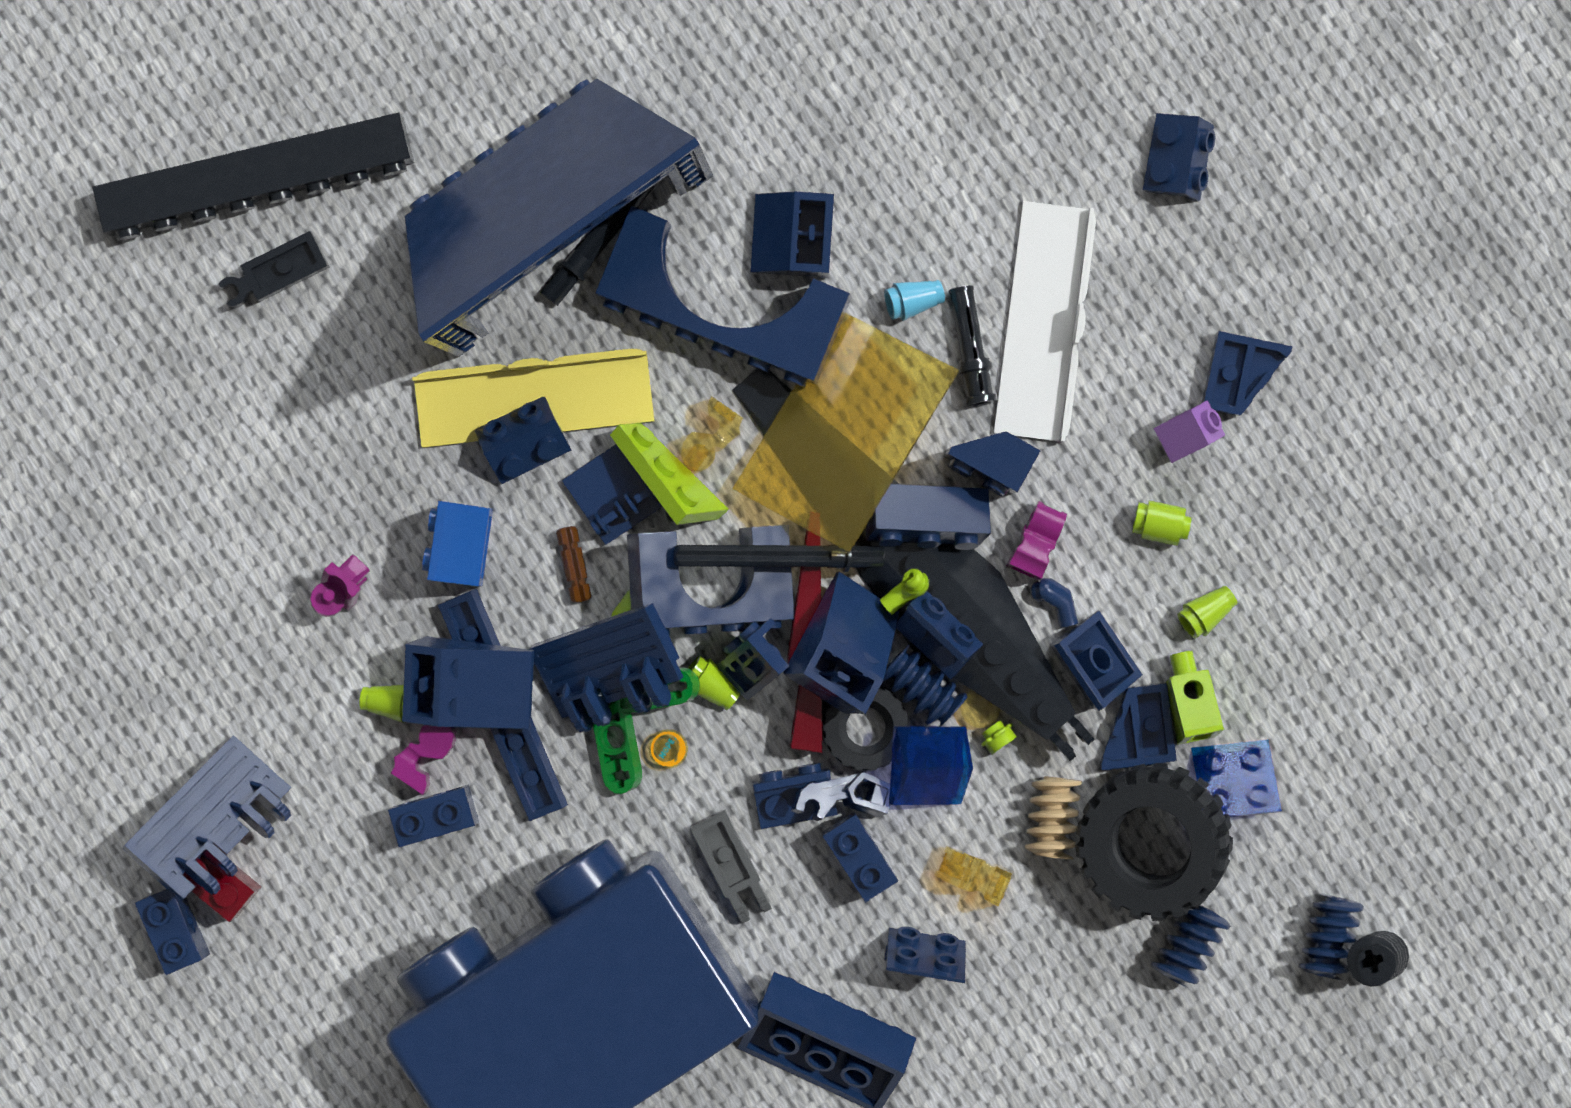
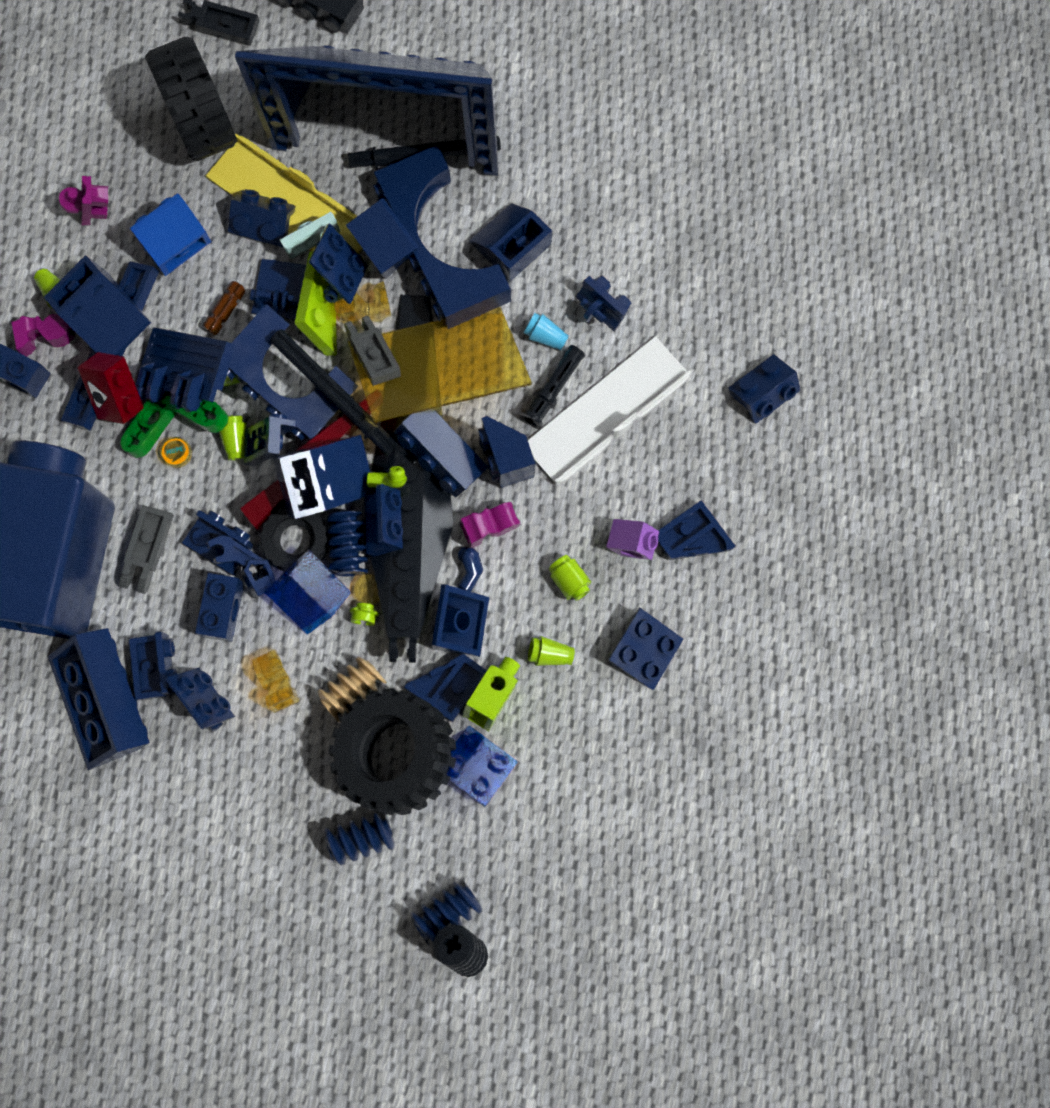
camera: 40 degrees right, 10 degrees down
(354, 391) = (191, 98): none -> black tyre
(556, 748) = (110, 387): none -> dark red brick
(591, 415) = (307, 235): none -> light aqua plate
(659, 425) = (338, 266): none -> dark blue hinge
(674, 357) = (383, 237): none -> dark blue slope
(774, 480) = (373, 352): none -> dark grey hinge
(848, 967) = (152, 665): none -> dark blue bracket
(942, 221) = (600, 304): none -> dark blue hips
(1293, 525) = (645, 649): none -> dark blue hinge

